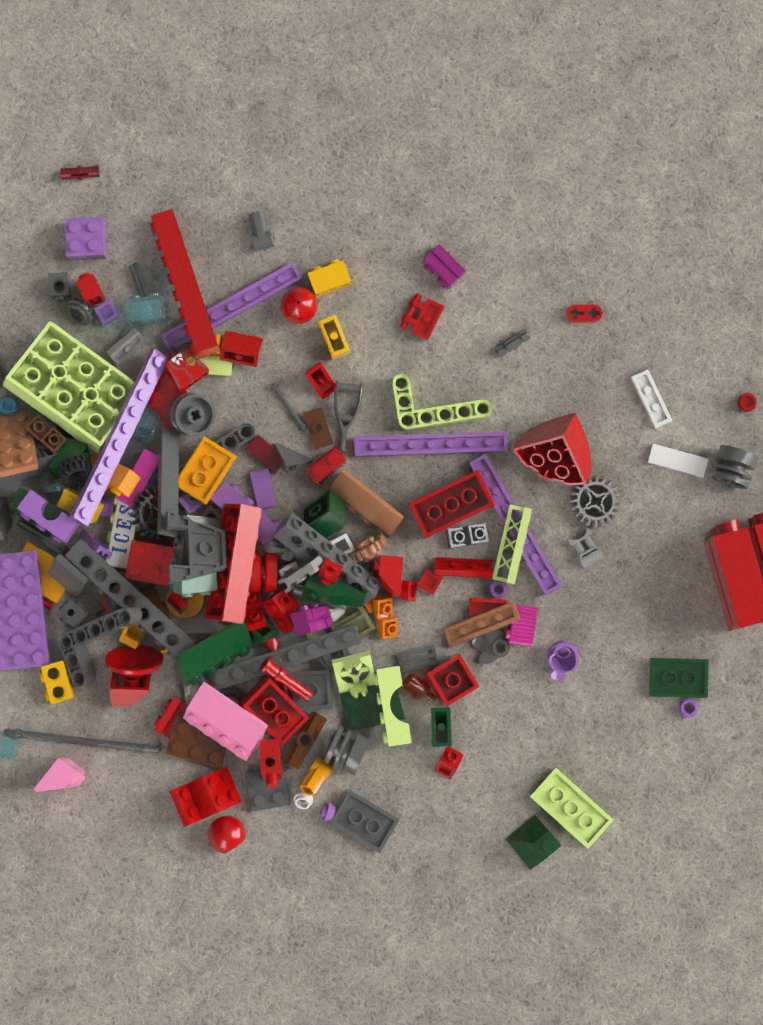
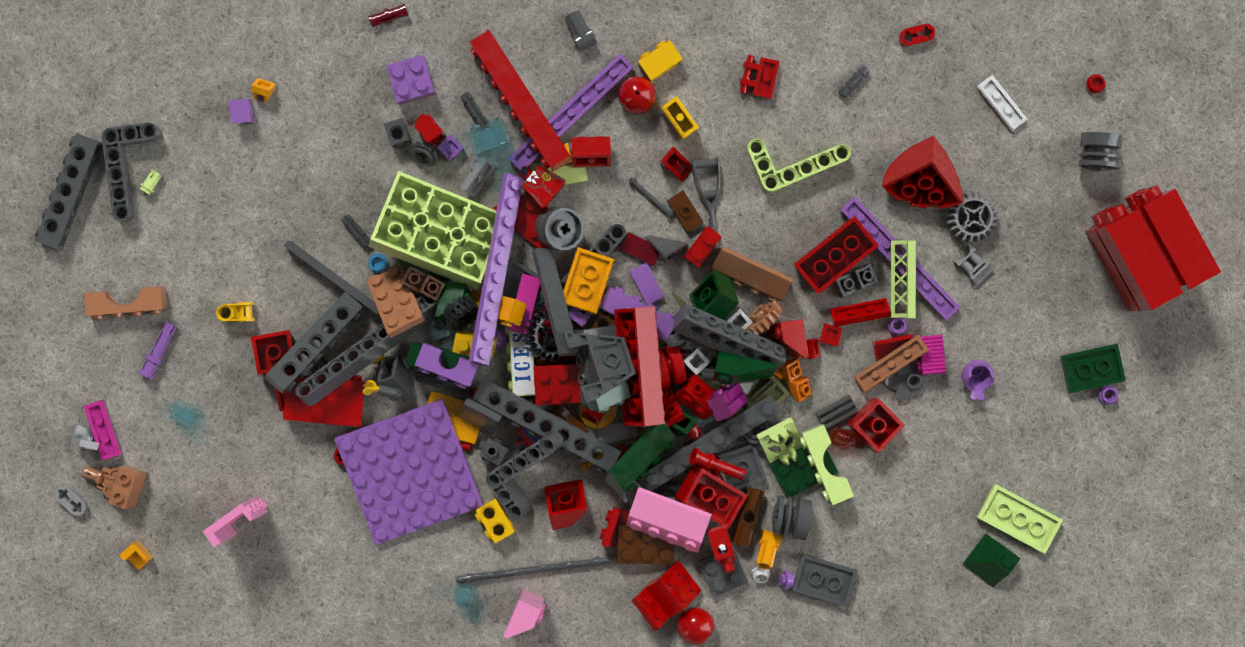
camera: 10 degrees left, 5 degrees up
(95, 543) = (498, 378): medium lavender tile -> none
(132, 636) = (556, 459): light orange panel -> none
(134, 662) = (565, 482): red dish -> none
(147, 425) = (519, 250): clear light blue brick -> none
(299, 575) = (707, 360): light grey plate -> none
(330, 571) = (736, 351): red tile -> none
(431, 444) = (799, 200): medium lavender plate -> none
(441, 726) = (877, 473): dark green slope -> none
(443, 266) = (769, 22): magenta brick -> none
(449, 762) = (892, 504): red bracket -> none
(678, 460) = (1042, 157): white tile -> none

